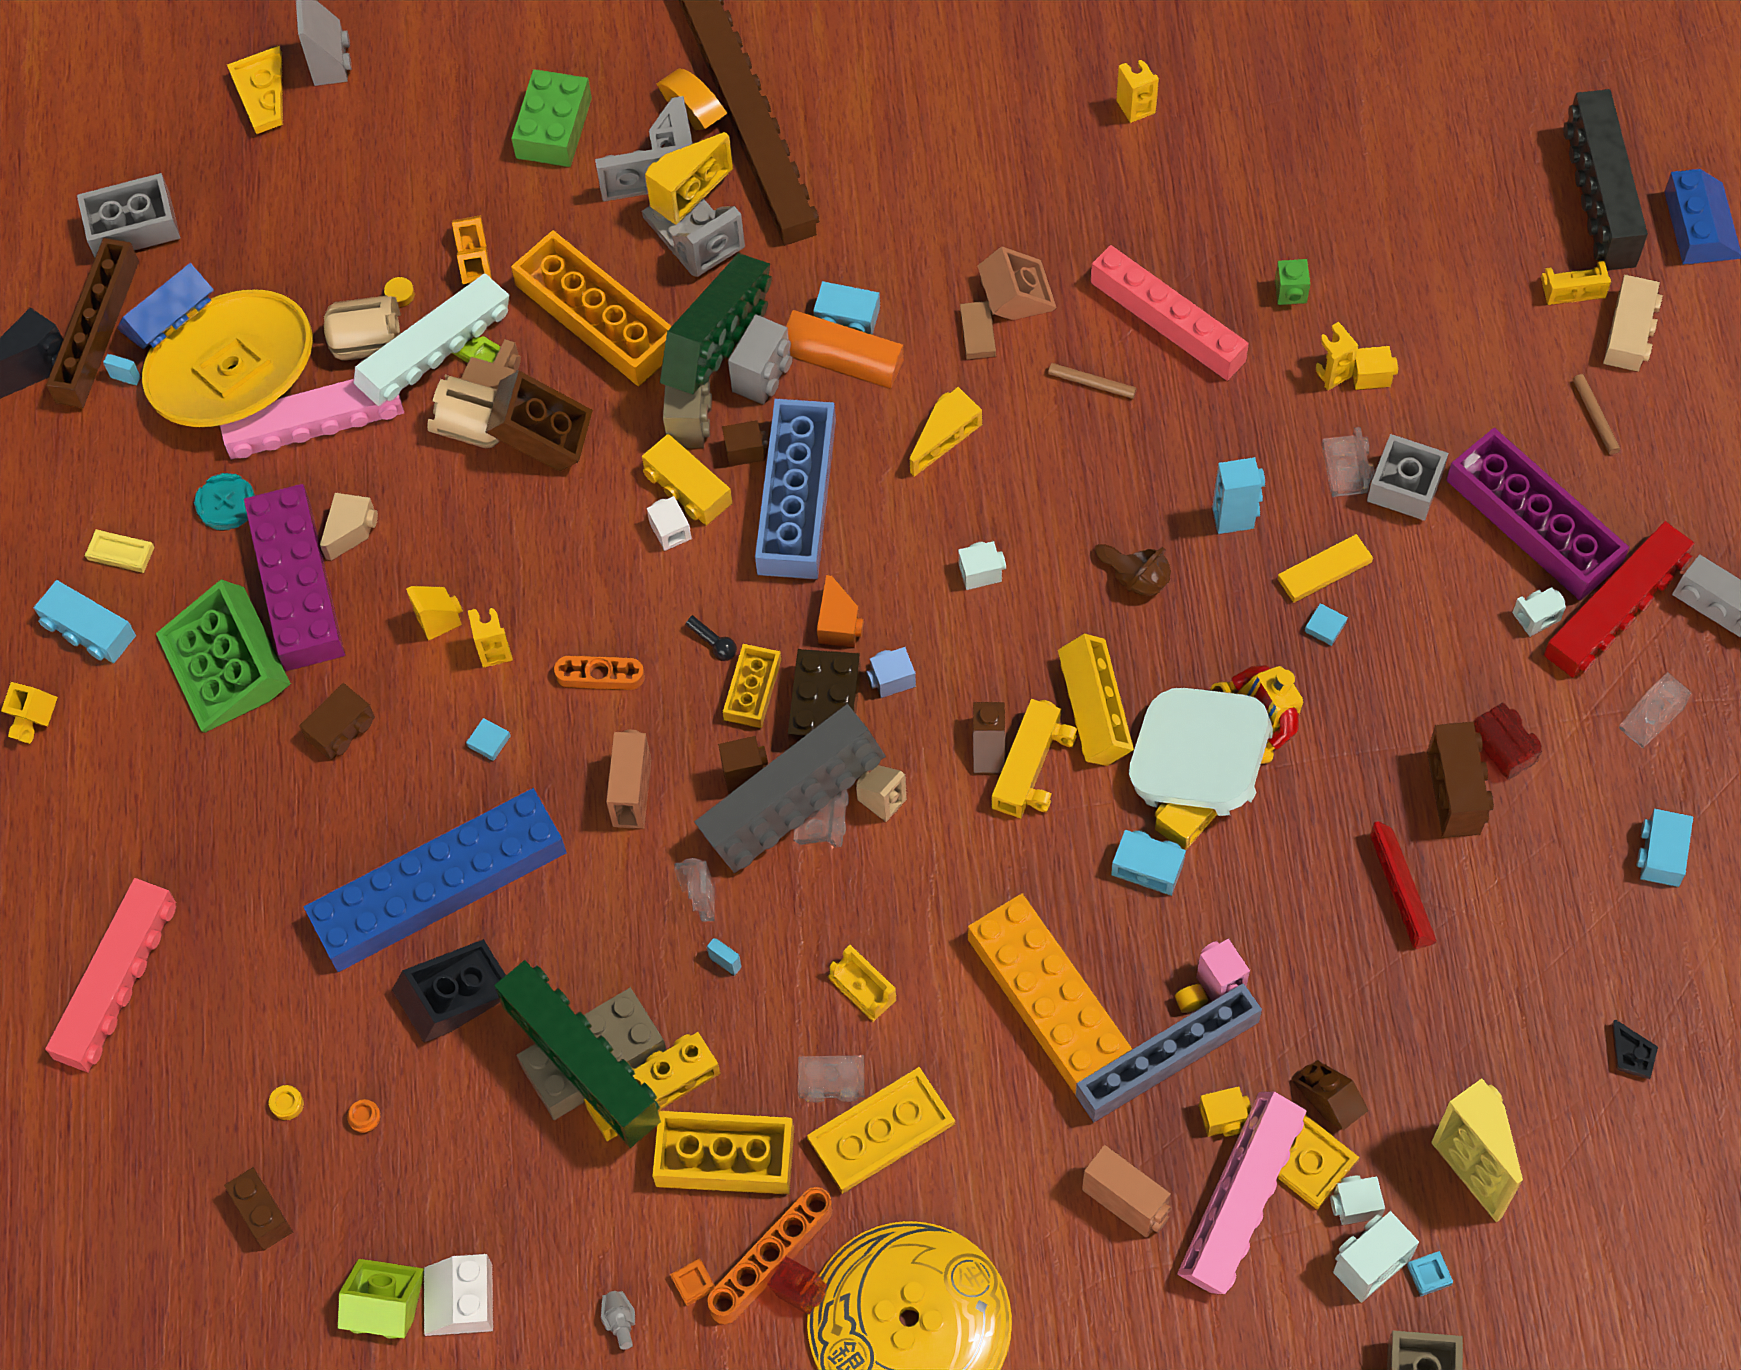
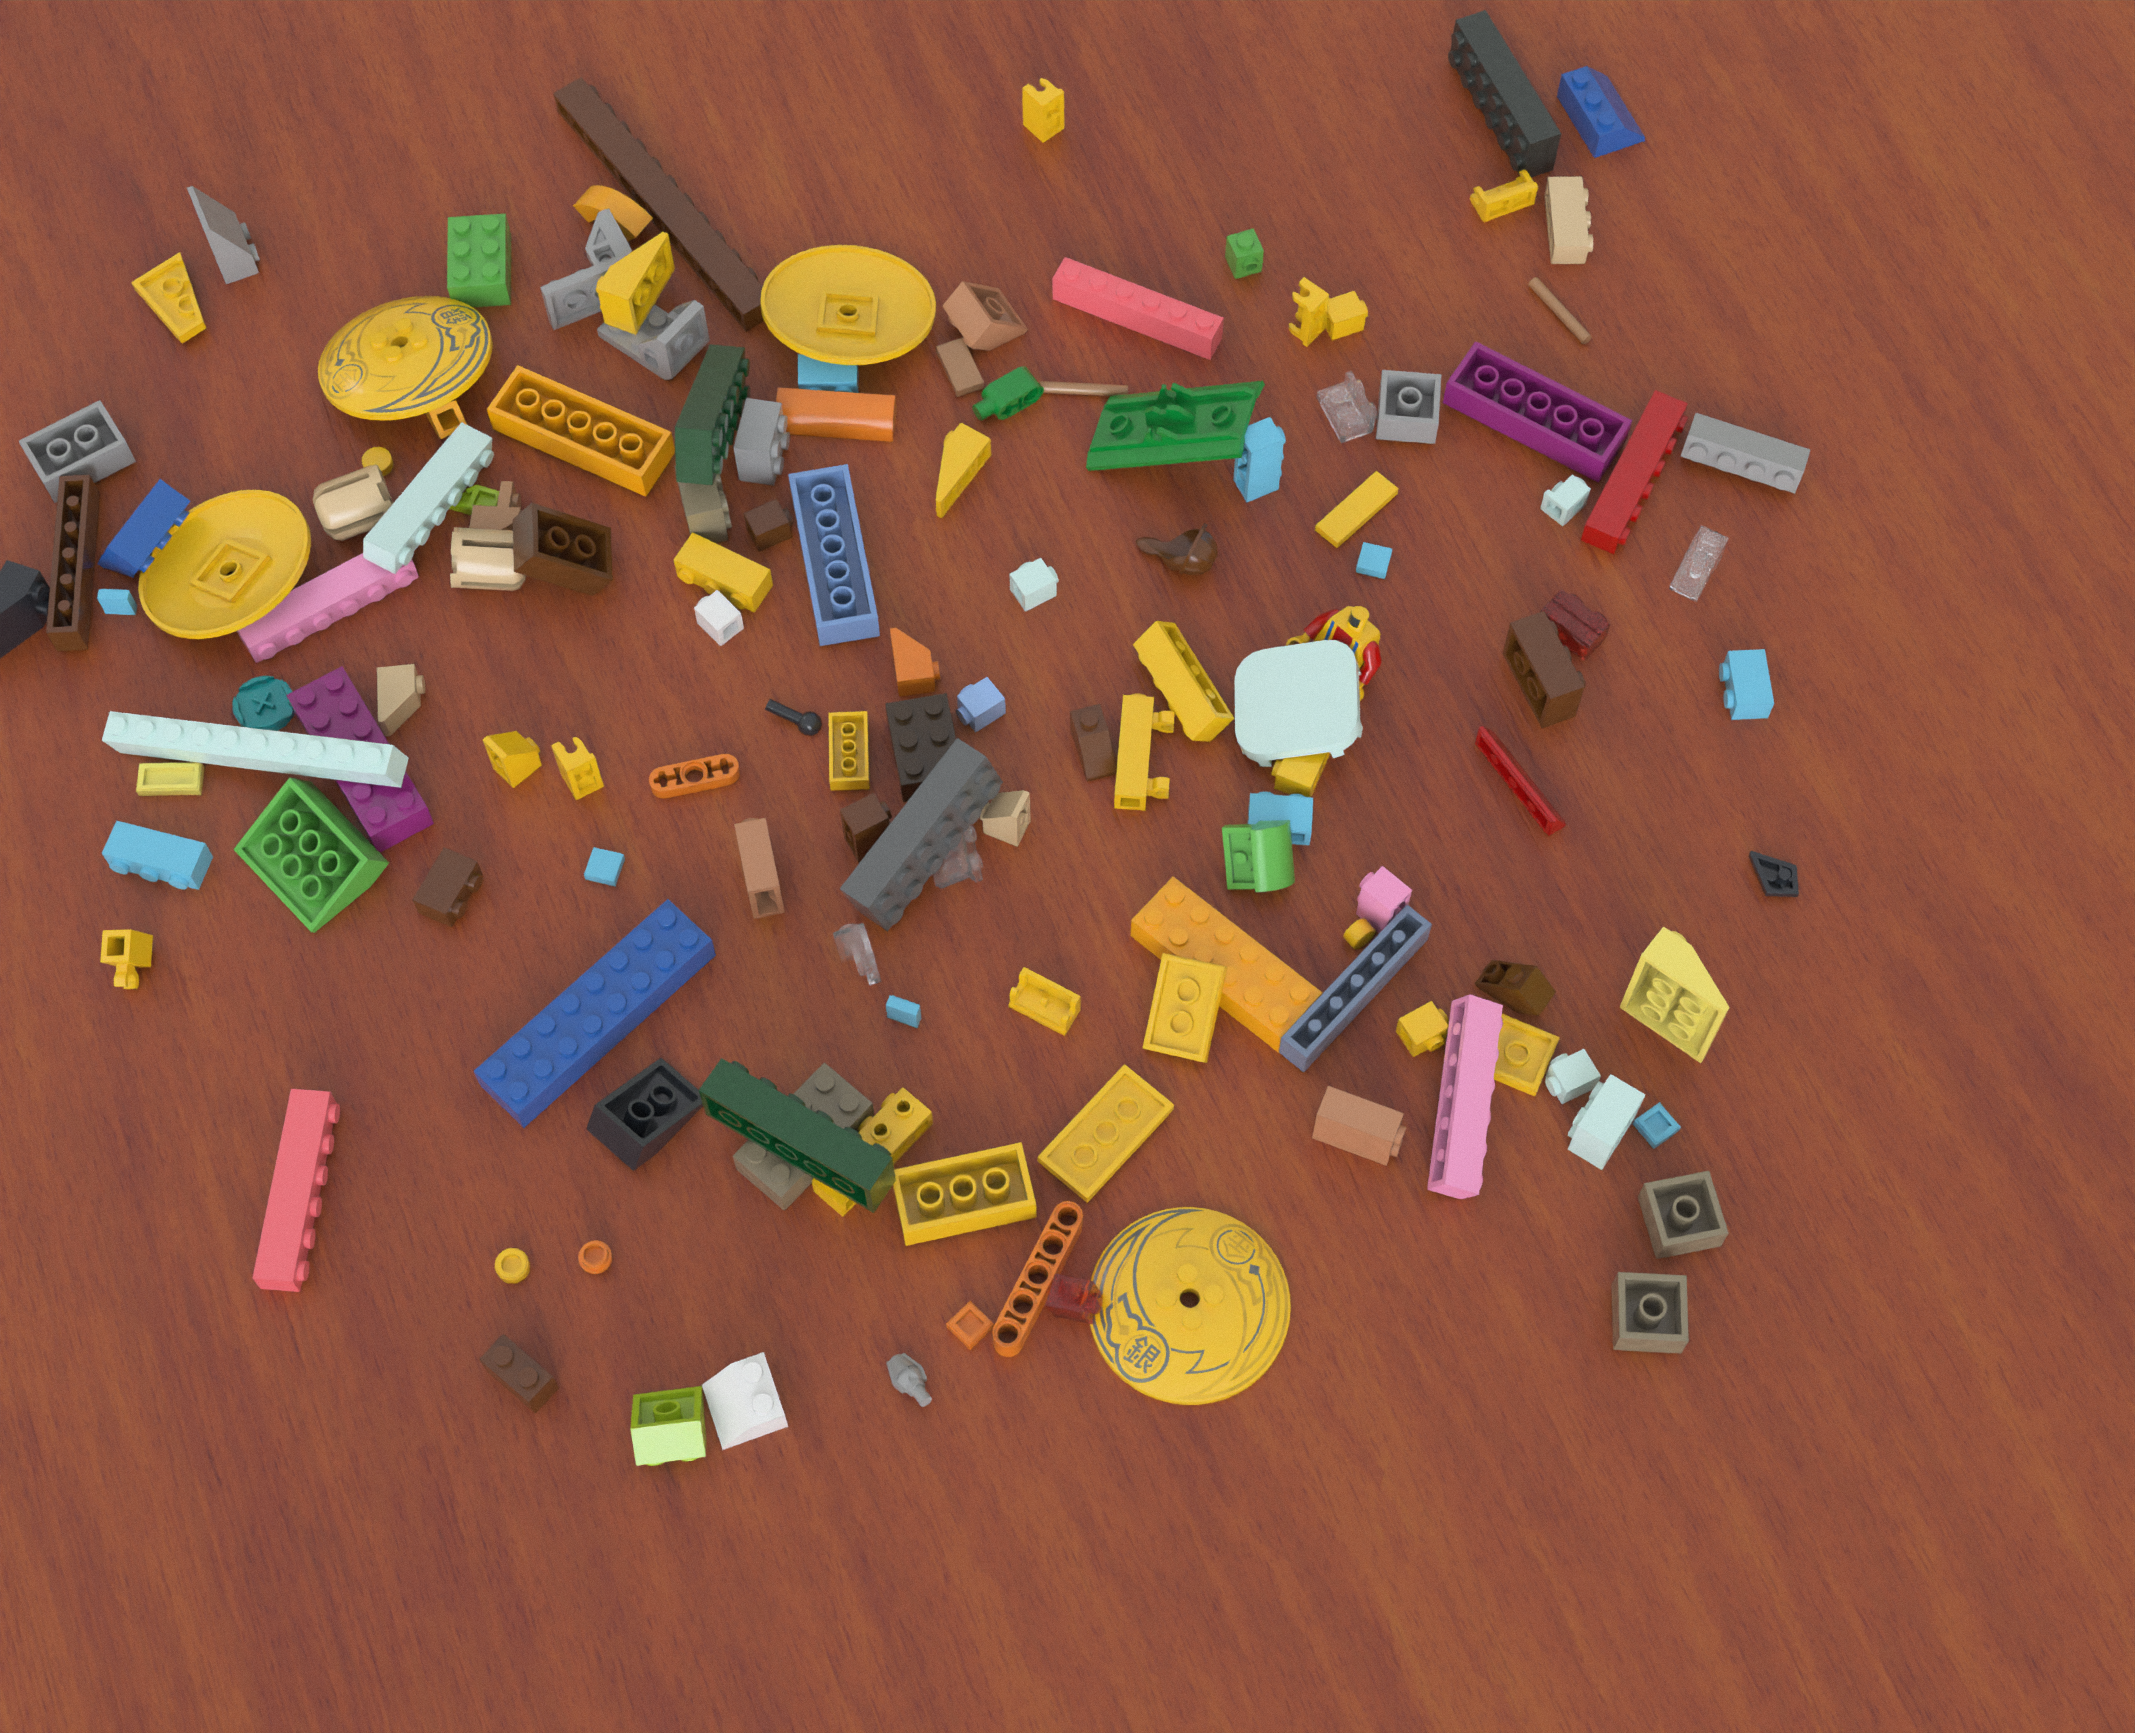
camera: 20 degrees left, 0 degrees up
(200, 544) = (256, 749): none -> light aqua brick
(424, 217) = (378, 380): none -> yellow dish
(831, 1077) = (1042, 1097): clear bracket -> none
(860, 218) = (814, 288): none -> yellow dish
(993, 1027) = (1184, 1007): none -> yellow tile
(1016, 369) = (1008, 395): none -> green piece
(1114, 894) = (1259, 855): none -> bright green brick
(1162, 441) = (1173, 426): none -> green hinge

